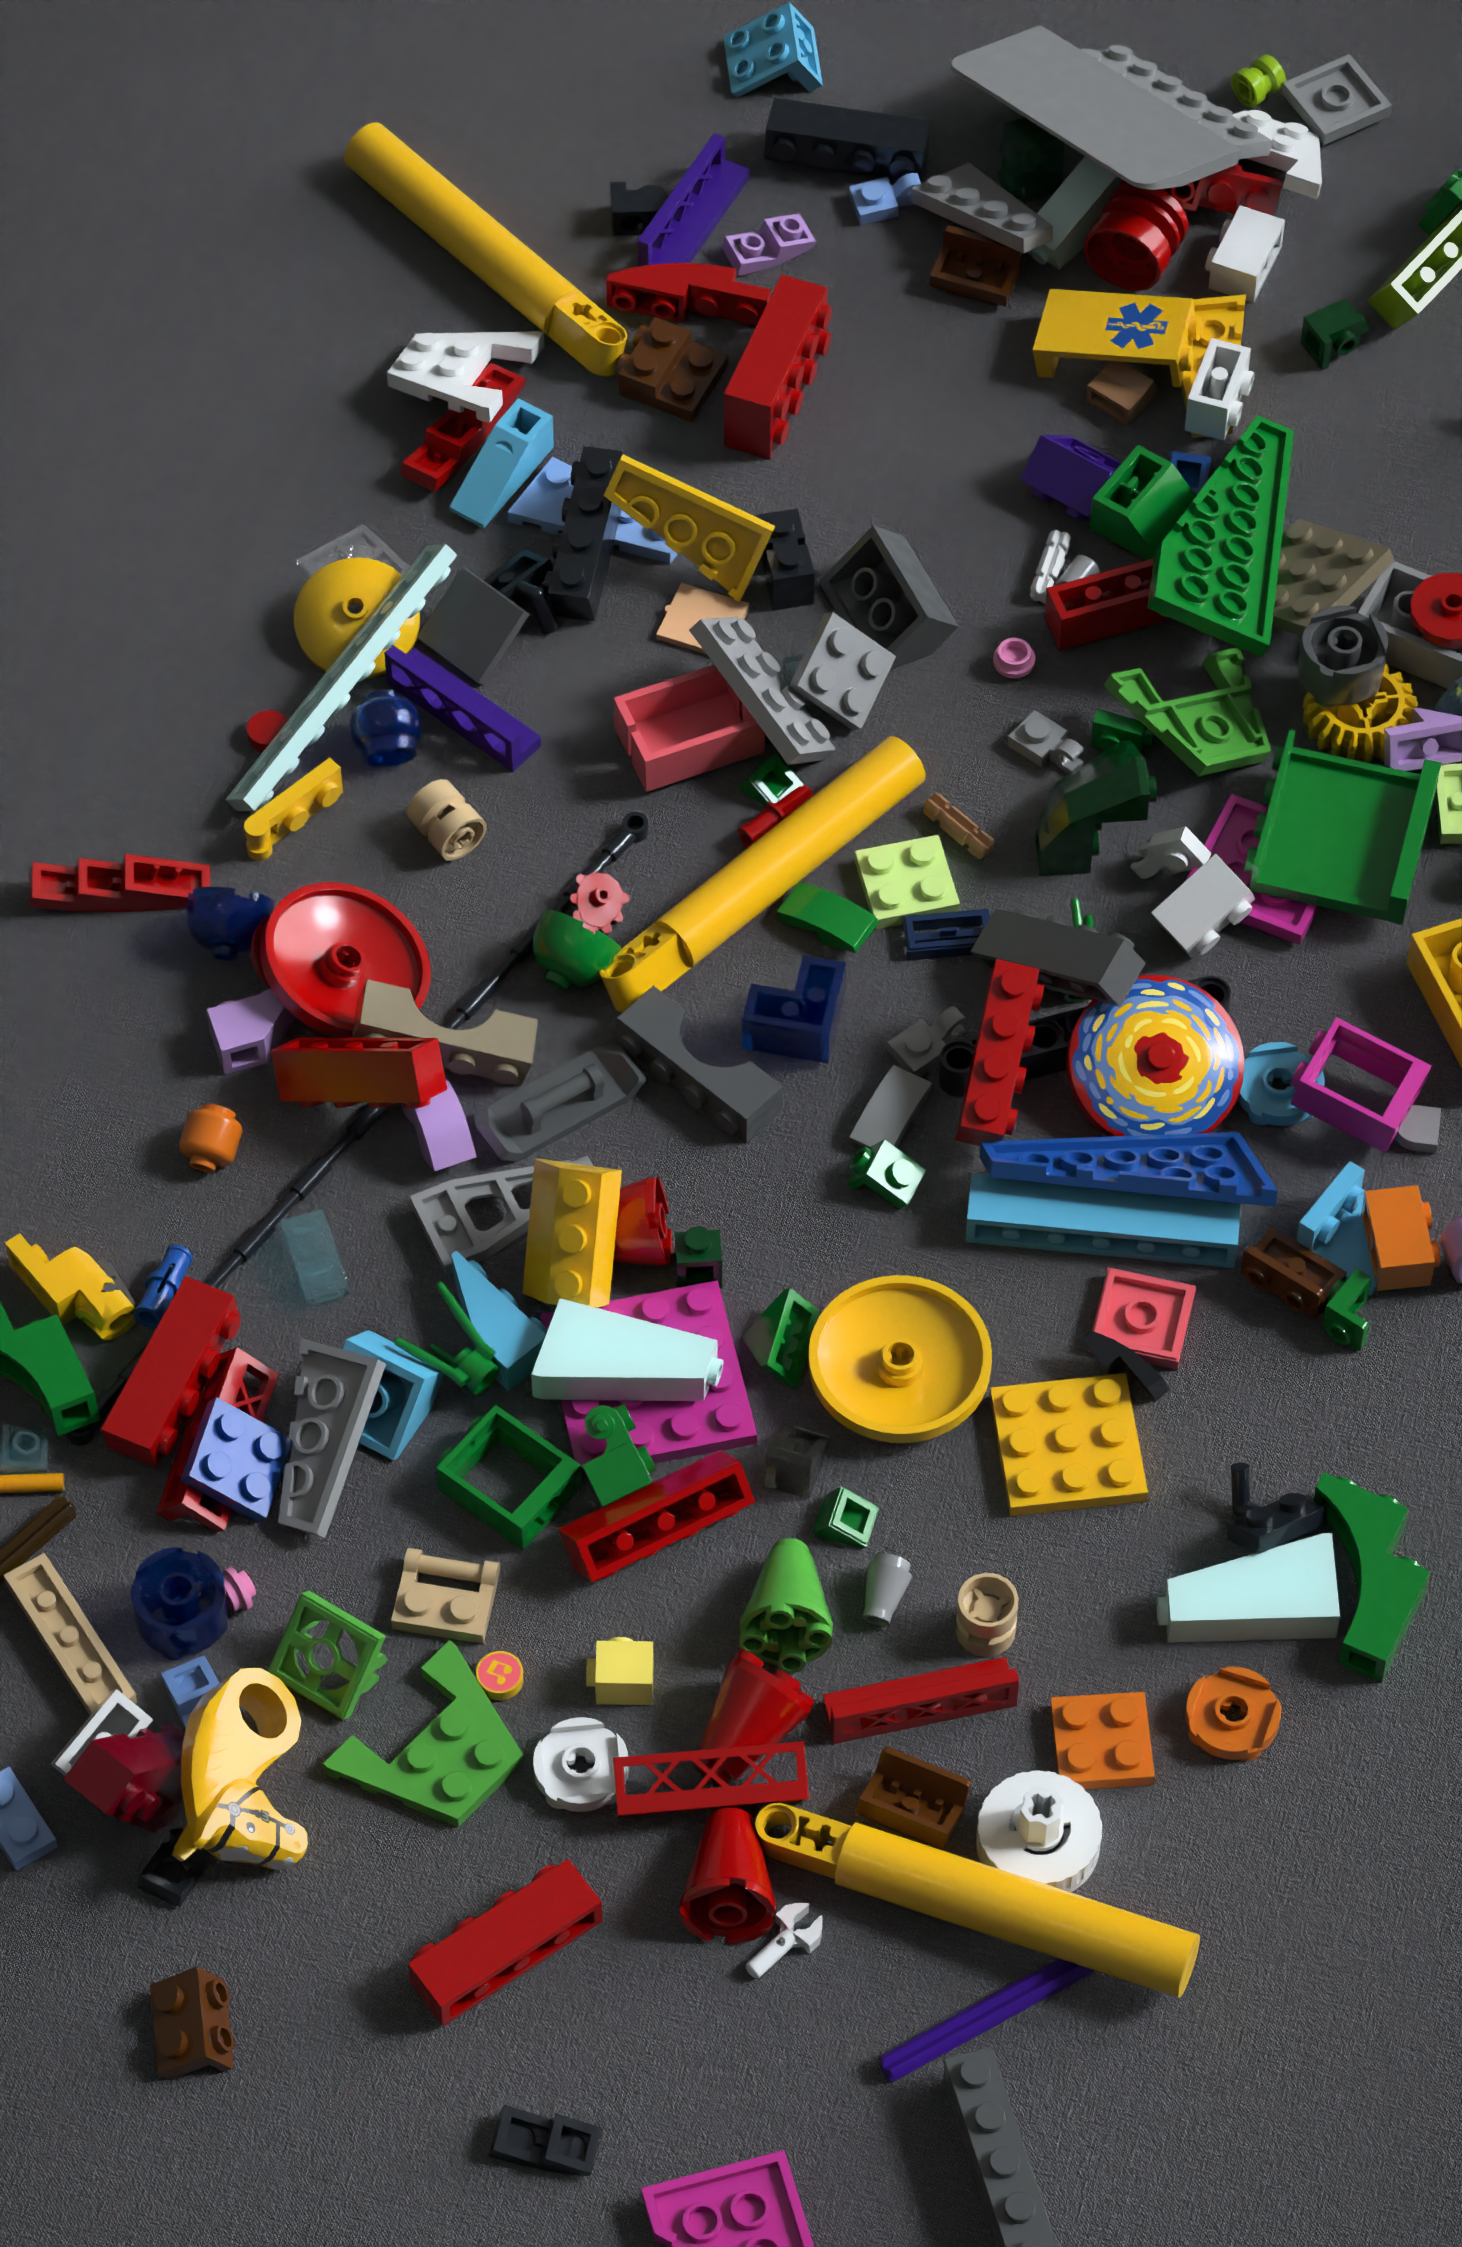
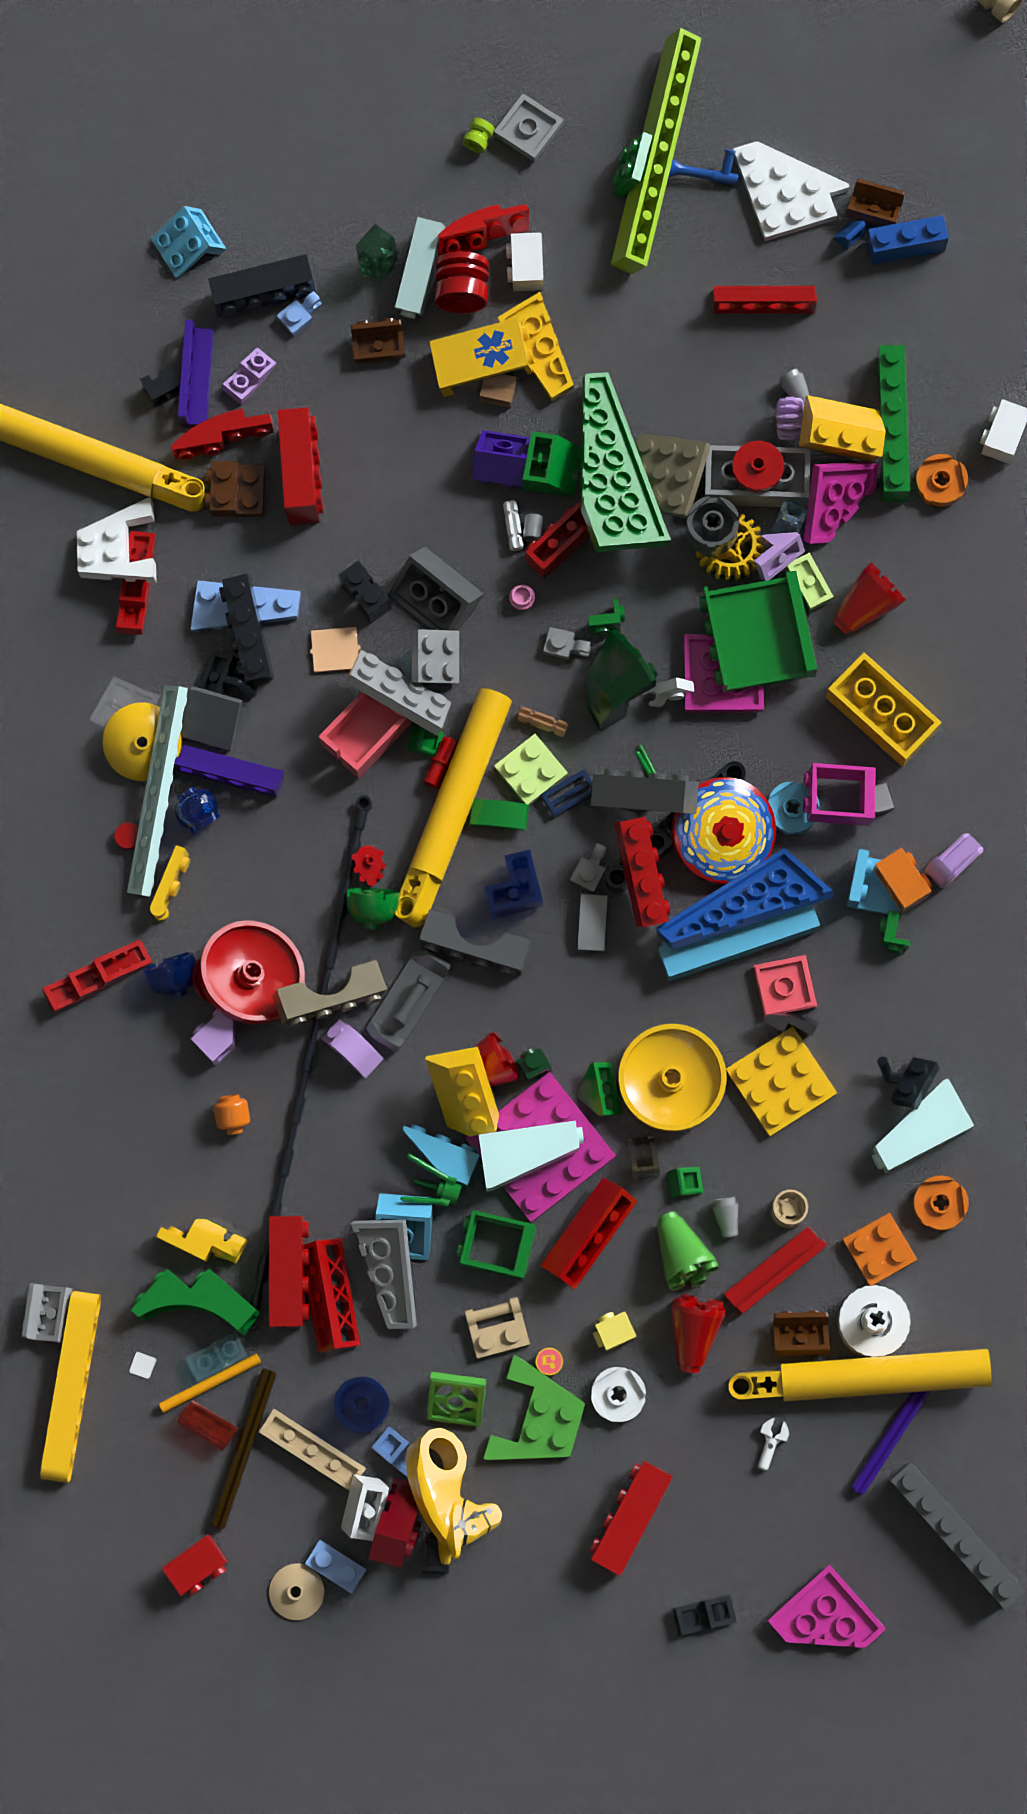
camera: 20 degrees left, 20 degrees up
(172, 1269) = (254, 1234): blue pin -> none
(191, 2023) = (491, 1639): reddish brown bracket -> none
(236, 1459) = (348, 1305): plate -> none
(238, 1589) = (387, 1380): bright pink plate -> none
(314, 1257) = (325, 1159): clear light blue slope -> none
(359, 1071) = (298, 1044): red brick -> none
(446, 819) = (251, 848): tan wheel -> none
(448, 1225) = (386, 1104): light grey plate -> none
(504, 463) = (173, 601): medium azure slope -> none
(622, 1466) = (555, 1215): green brick -> none
(701, 527) = (316, 601): yellow wing -> none
(711, 1798) = (695, 1382): red fence -> none
(728, 1881) = (728, 1425): red cone -> none
(886, 1172) = (608, 963): bracket -> none
(983, 206) = (361, 300): light grey wing -> none
(1112, 108) = (414, 207): light grey slope -> none
(1193, 468) = (562, 425): blue slope -> none
(1204, 906) = (705, 718): white brick -> none
(1205, 729) = (654, 598): bright green wing -> none
(1218, 388) = (559, 372): white brick -> none
(1291, 150) = (504, 178): white wing -> none
(1291, 1272) = (853, 923): reddish brown bracket -> none
(1332, 332) = (600, 295): dark green brick -> none
(1386, 1585) = (986, 1092): green arch -> none

